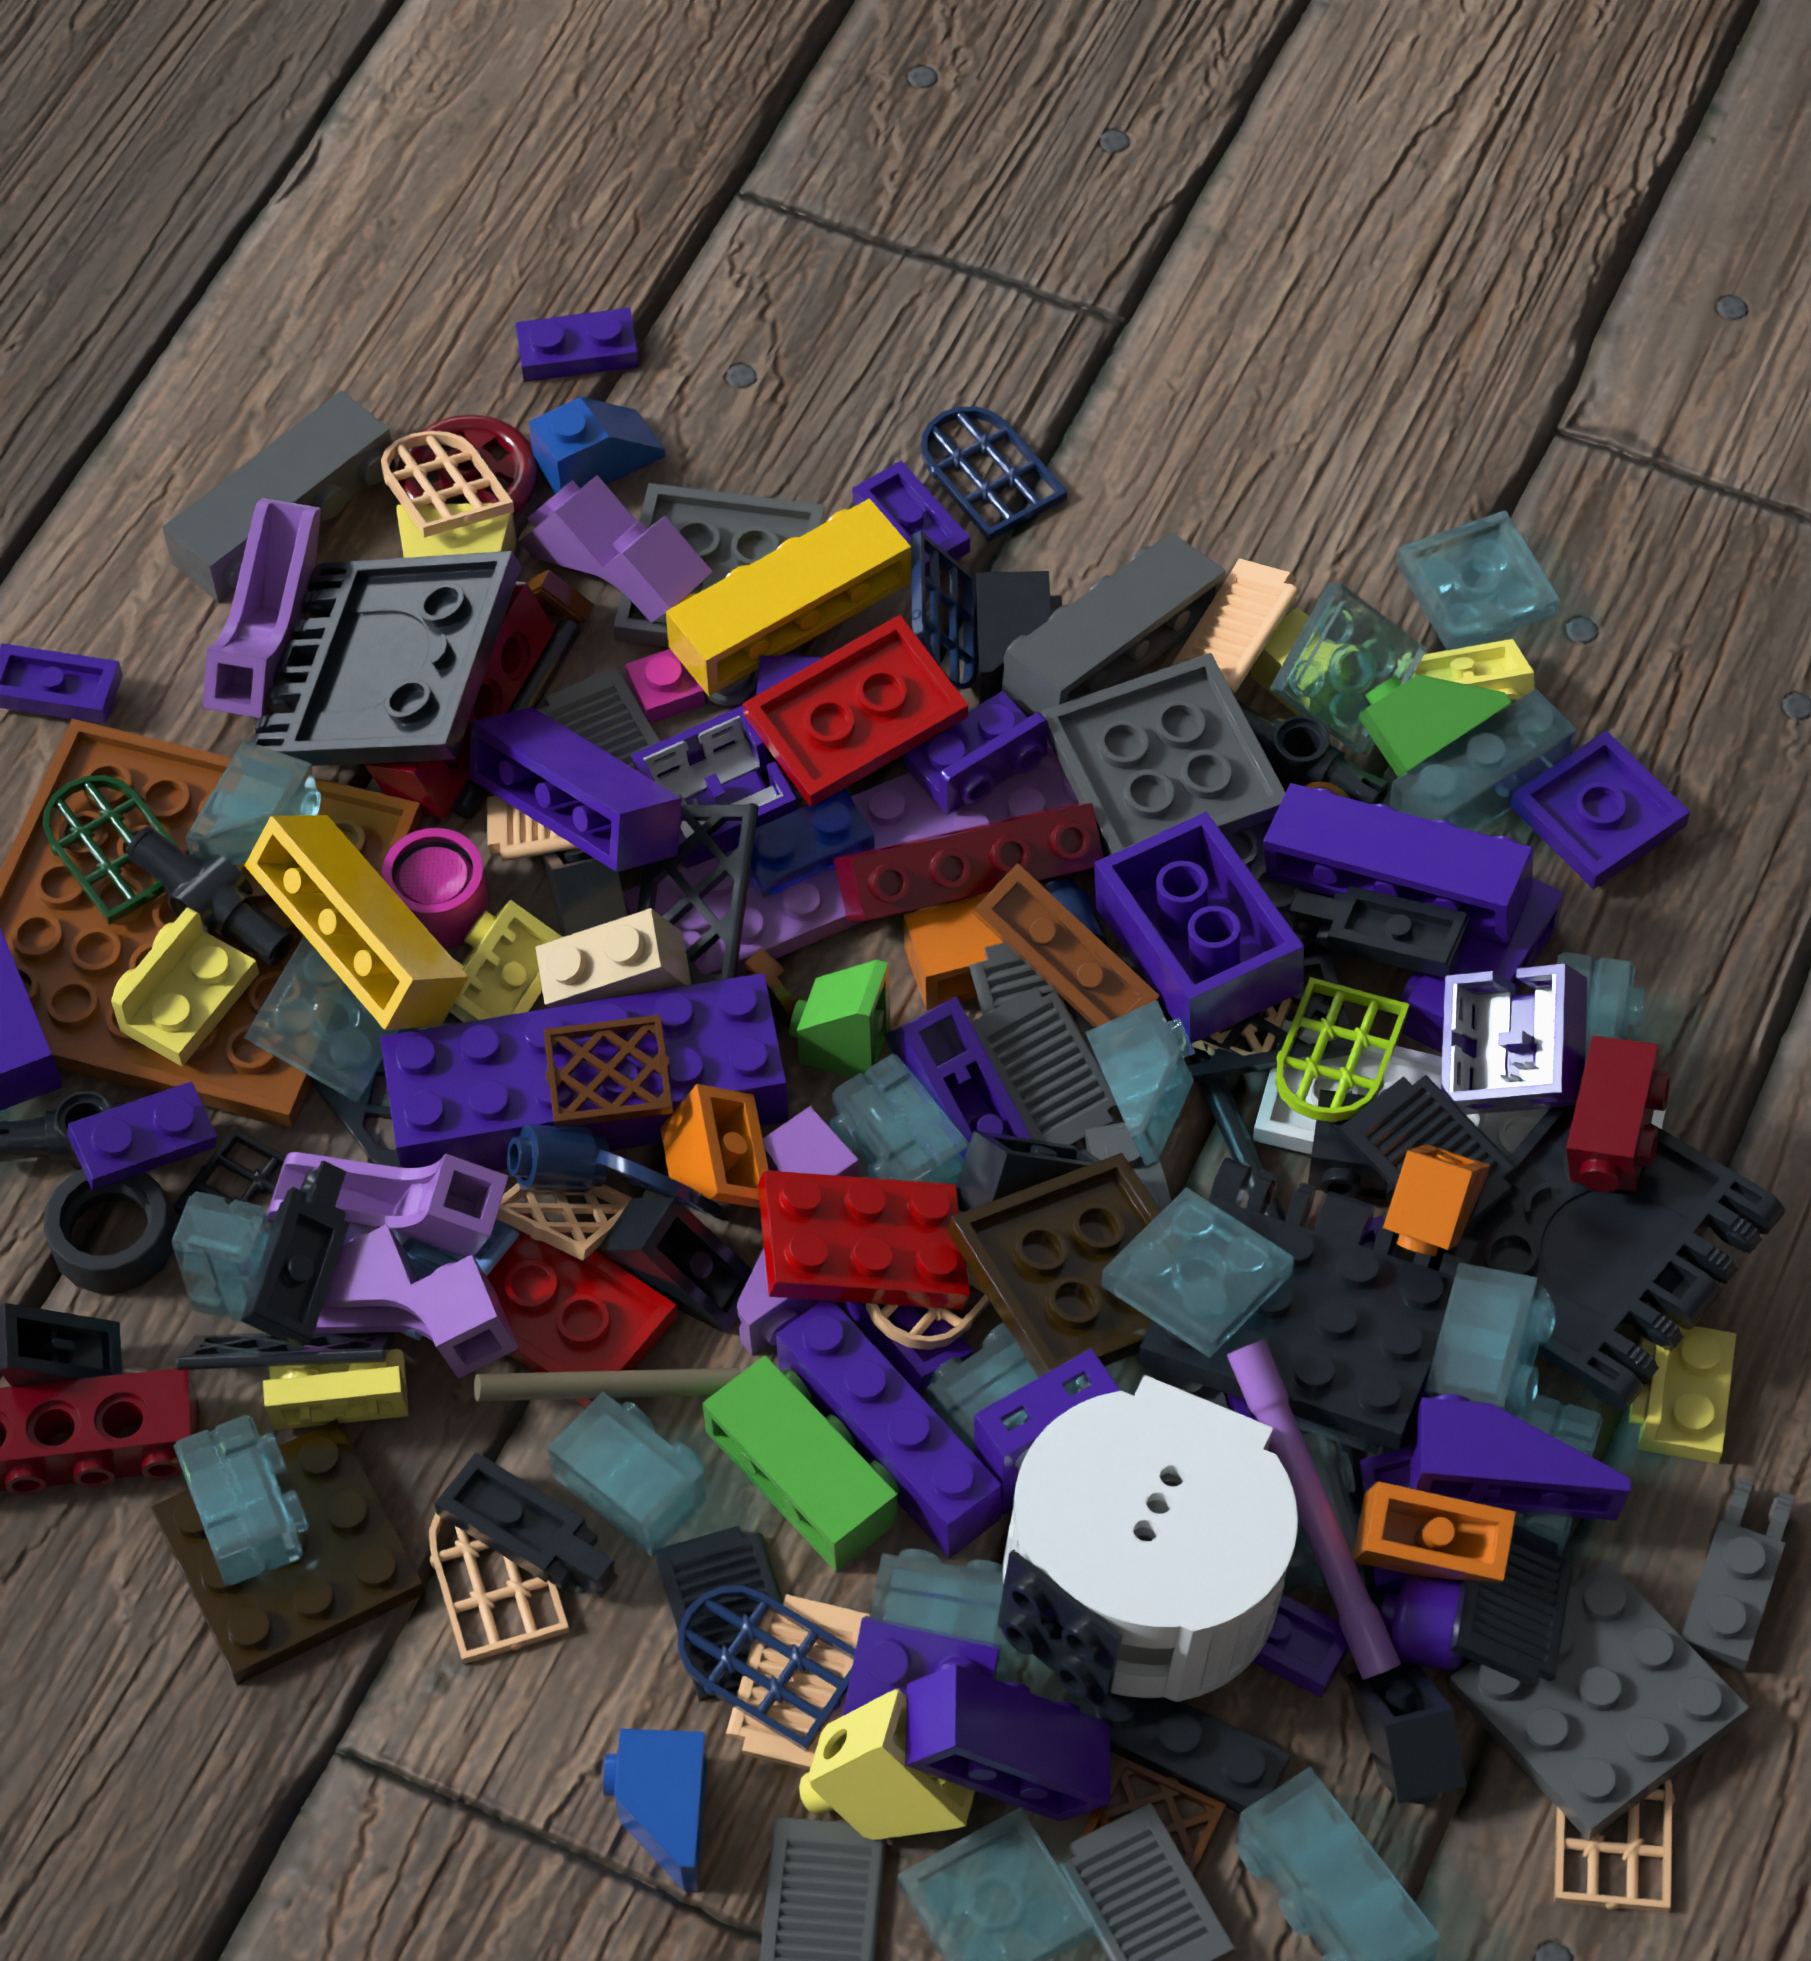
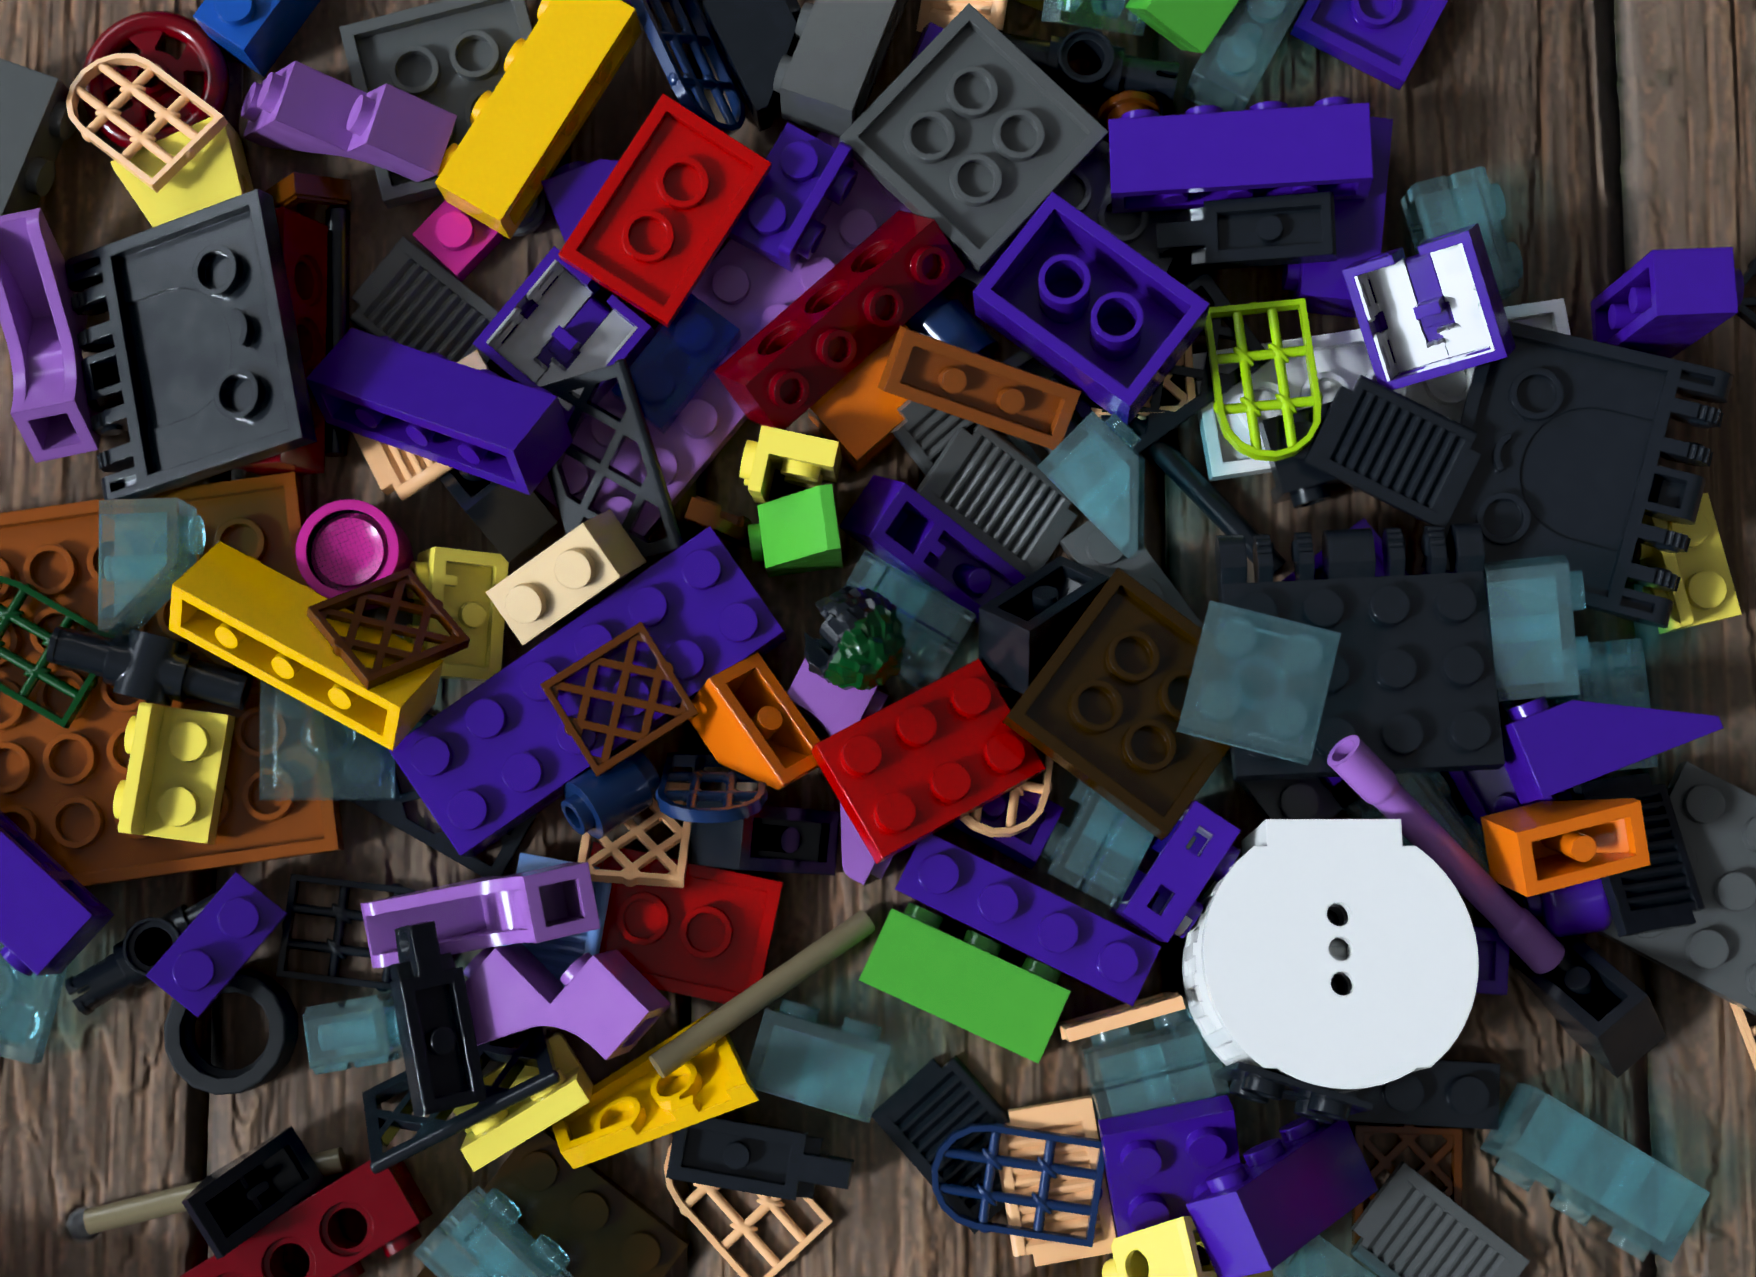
camera: 25 degrees left, 25 degrees up
(429, 952) = (369, 594): none -> reddish brown window
(455, 1432) = (642, 1106): none -> yellow wing
(850, 1101) = (859, 641): none -> piece
(862, 934) = (798, 456): none -> light yellow bracket
(915, 1520) = (1120, 1016): none -> light nougat window
(1434, 1198) = (1438, 510): orange slope -> none
(1614, 1114) = (1556, 352): dark red brick -> none
(1753, 1113) = (1669, 300): none -> dark purple brick

